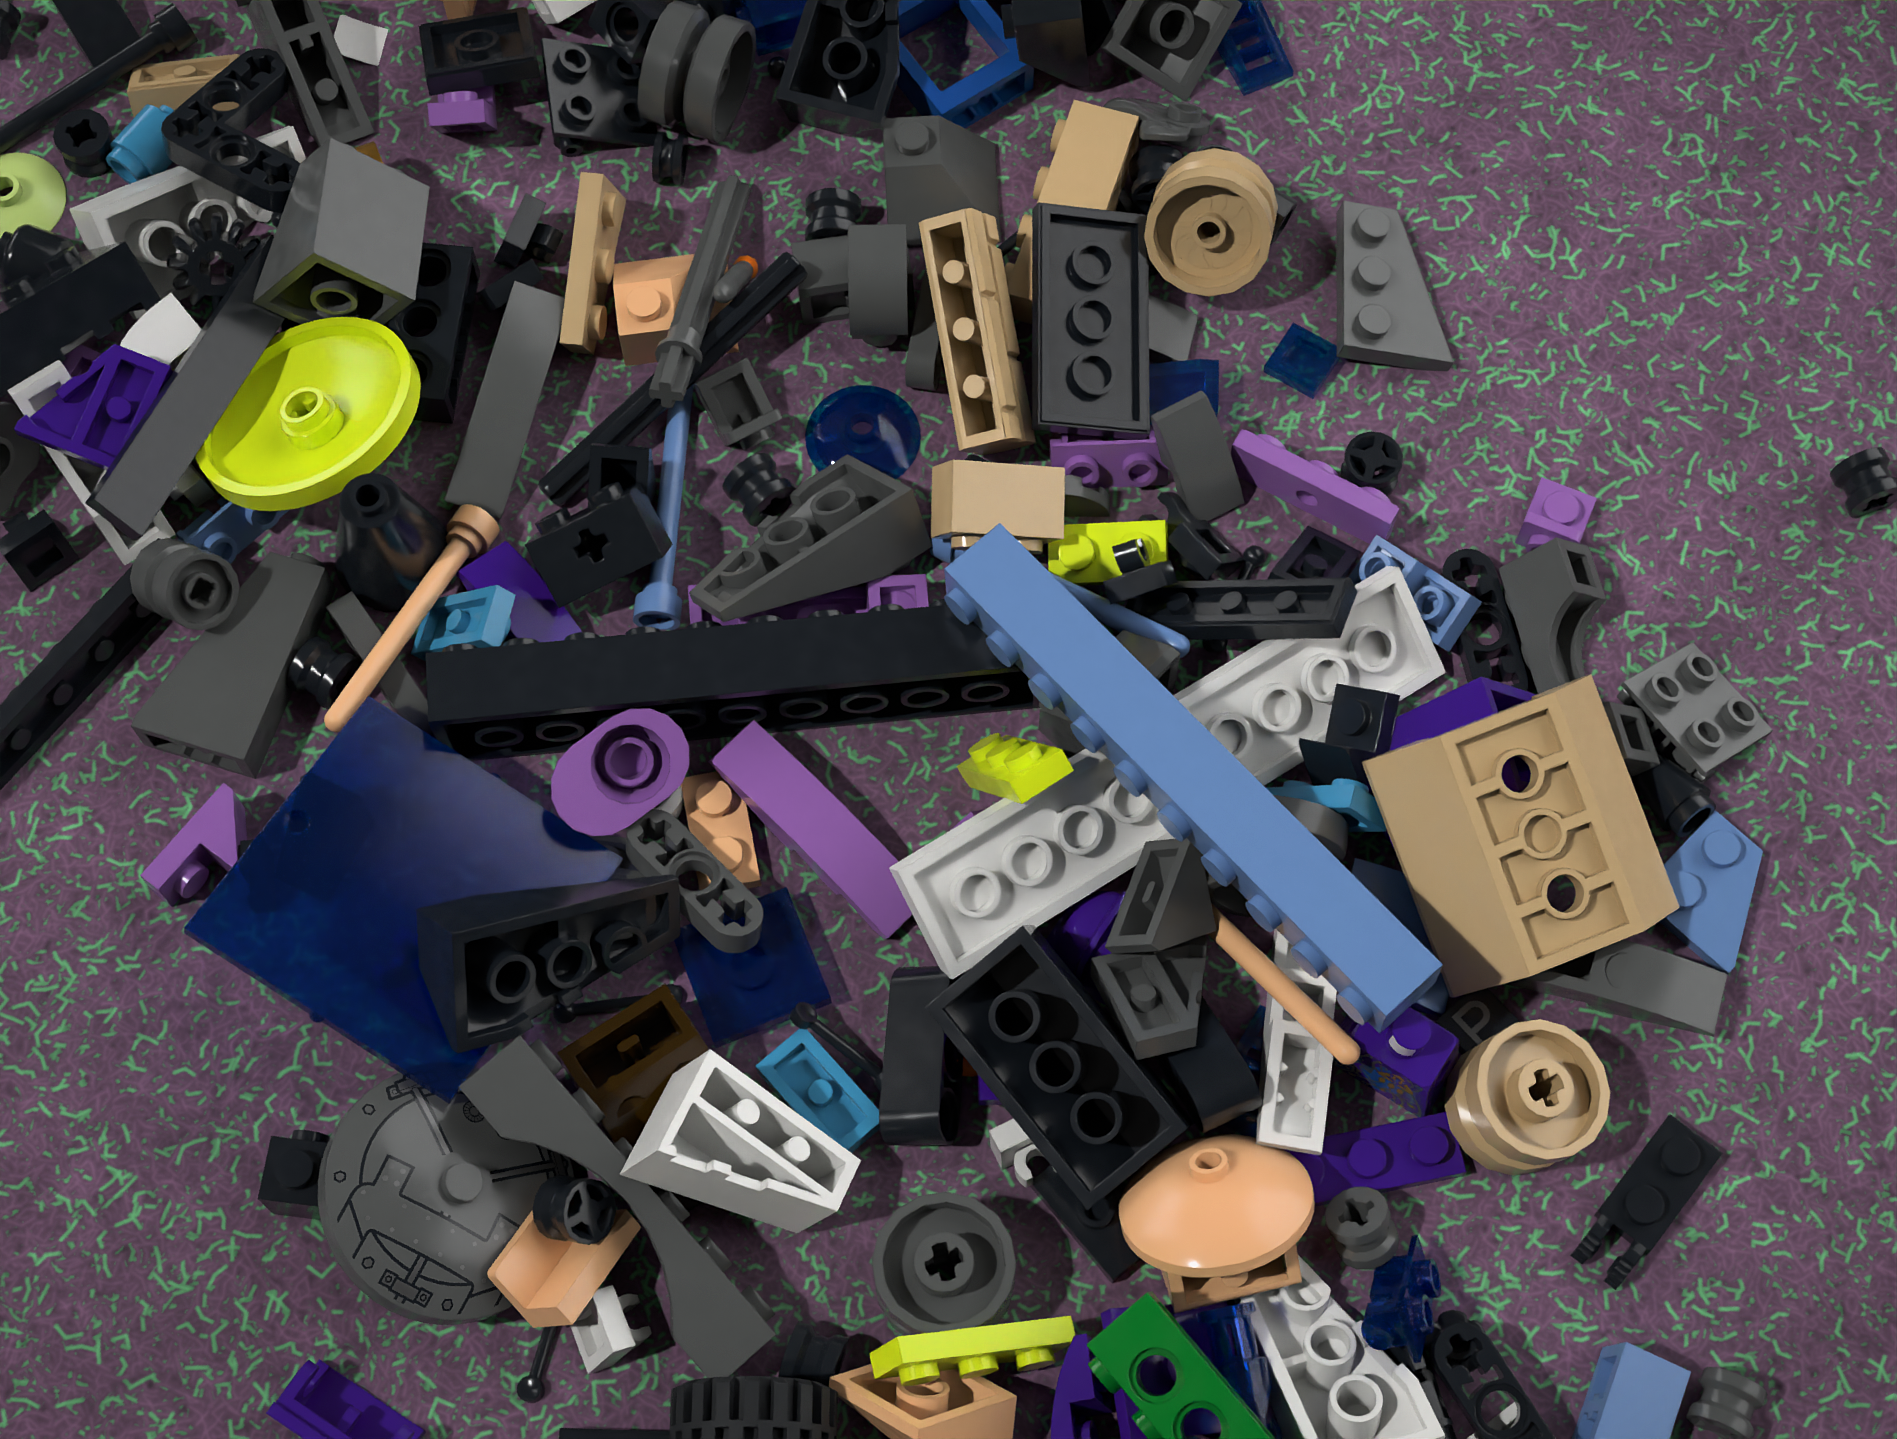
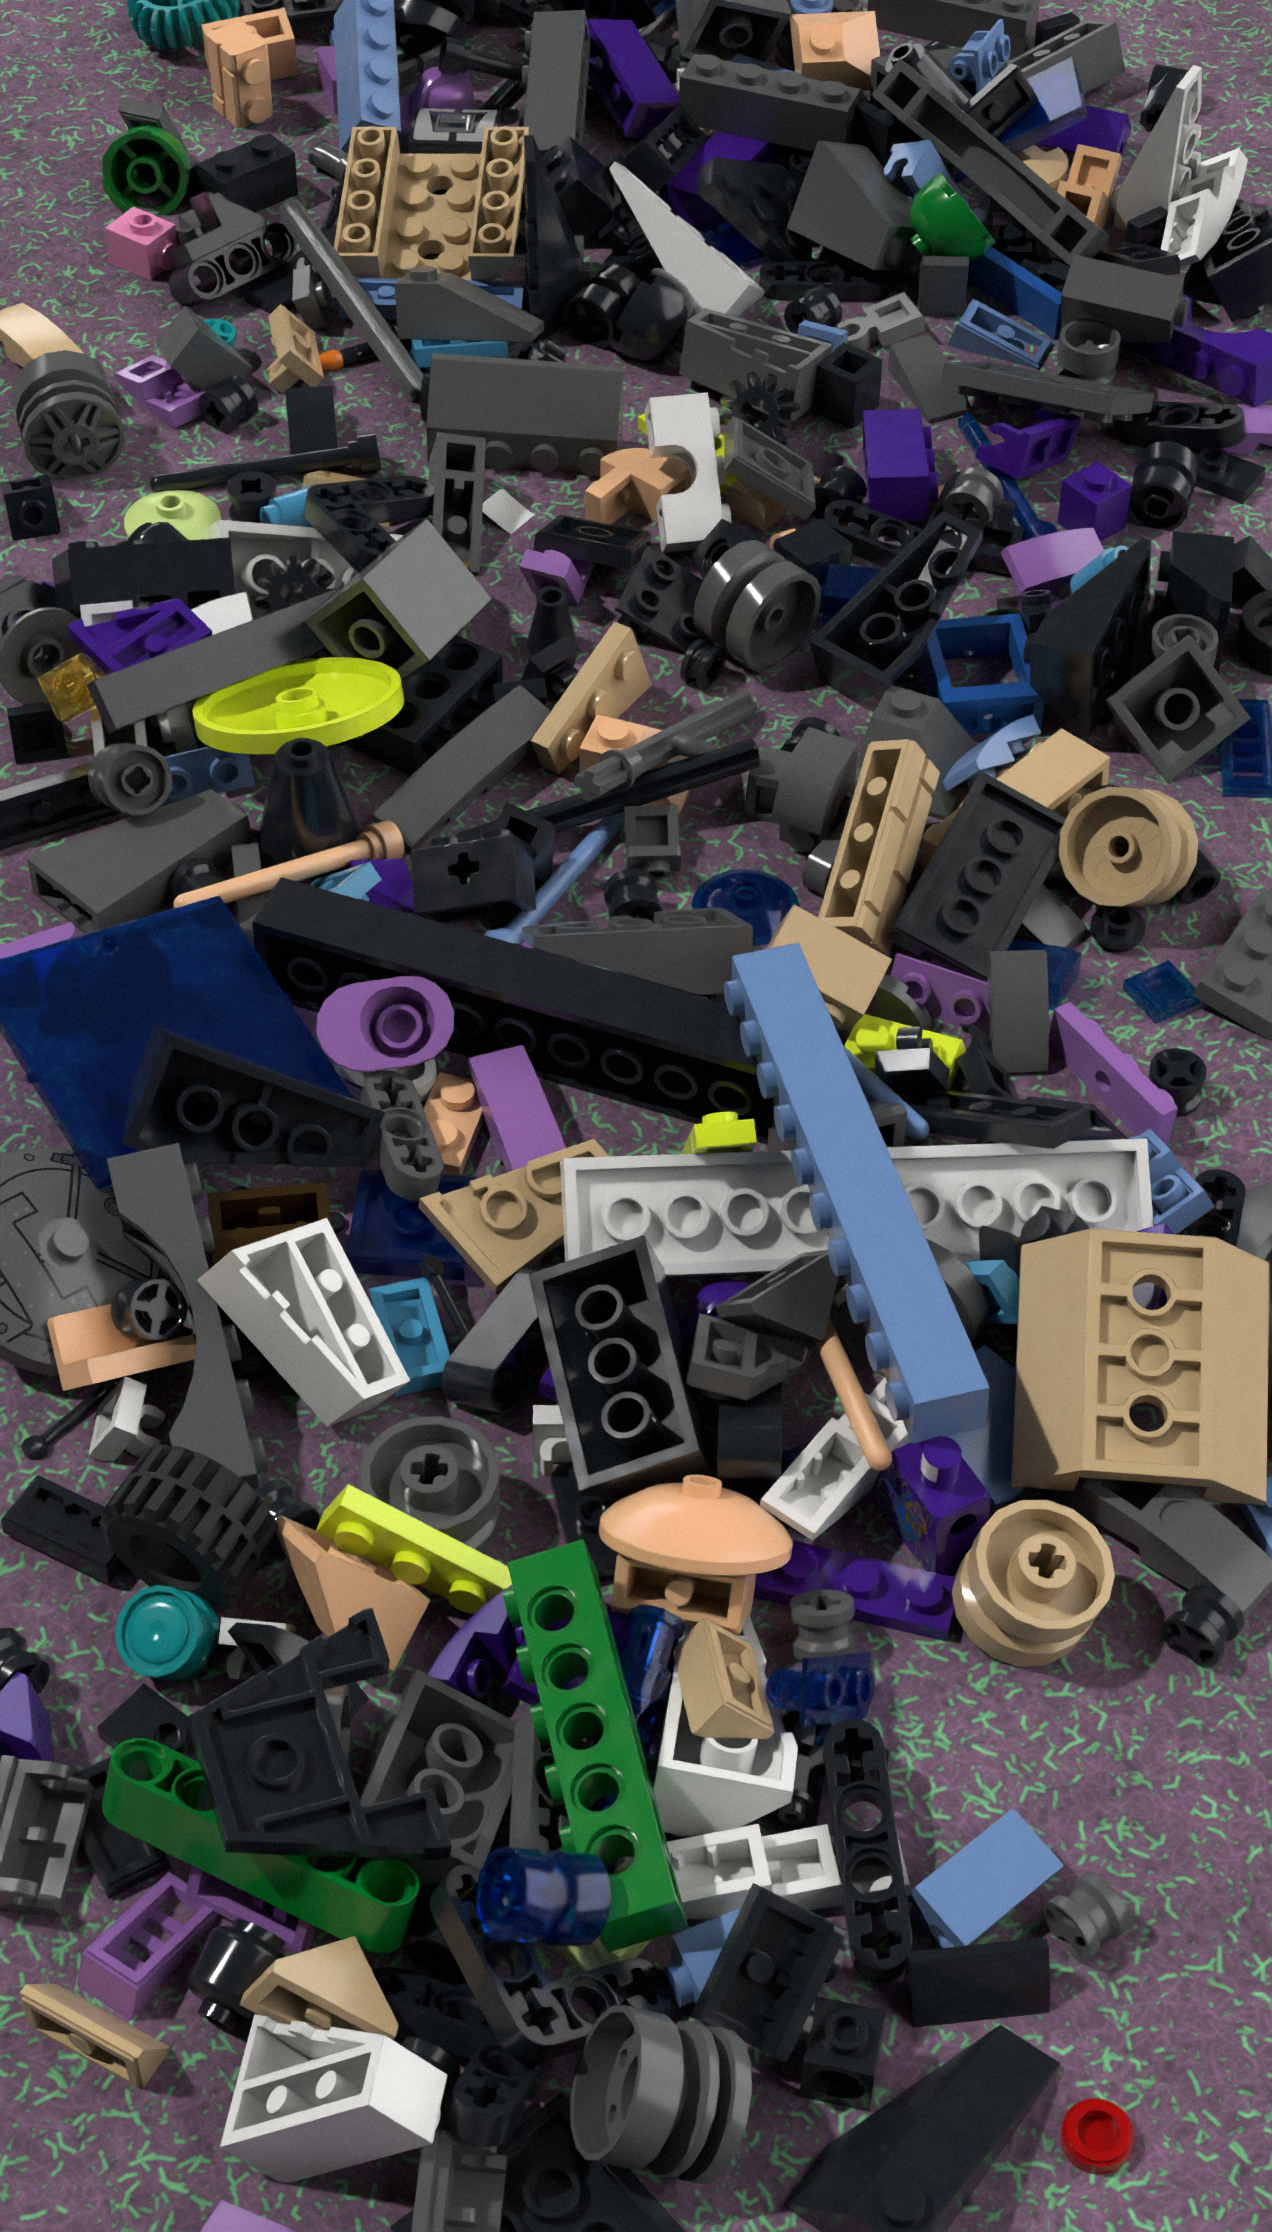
camera: 25 degrees right, 20 degrees down
(60, 498) = (67, 687): none -> clear yellow bracket
(496, 183) = (550, 619): none -> black cone
(857, 919) = (507, 1218): none -> tan wing
(1012, 154) = (992, 754): none -> medium blue slope
(1177, 124) = (1148, 780): dark grey plate -> none
(1229, 318) = (1117, 928): none -> black plate
(1318, 1348) = (721, 1685): none -> tan slope
(1650, 1195) = (1108, 1728): black hinge -> none
(1681, 1057) = (1203, 1625): none -> black wheel

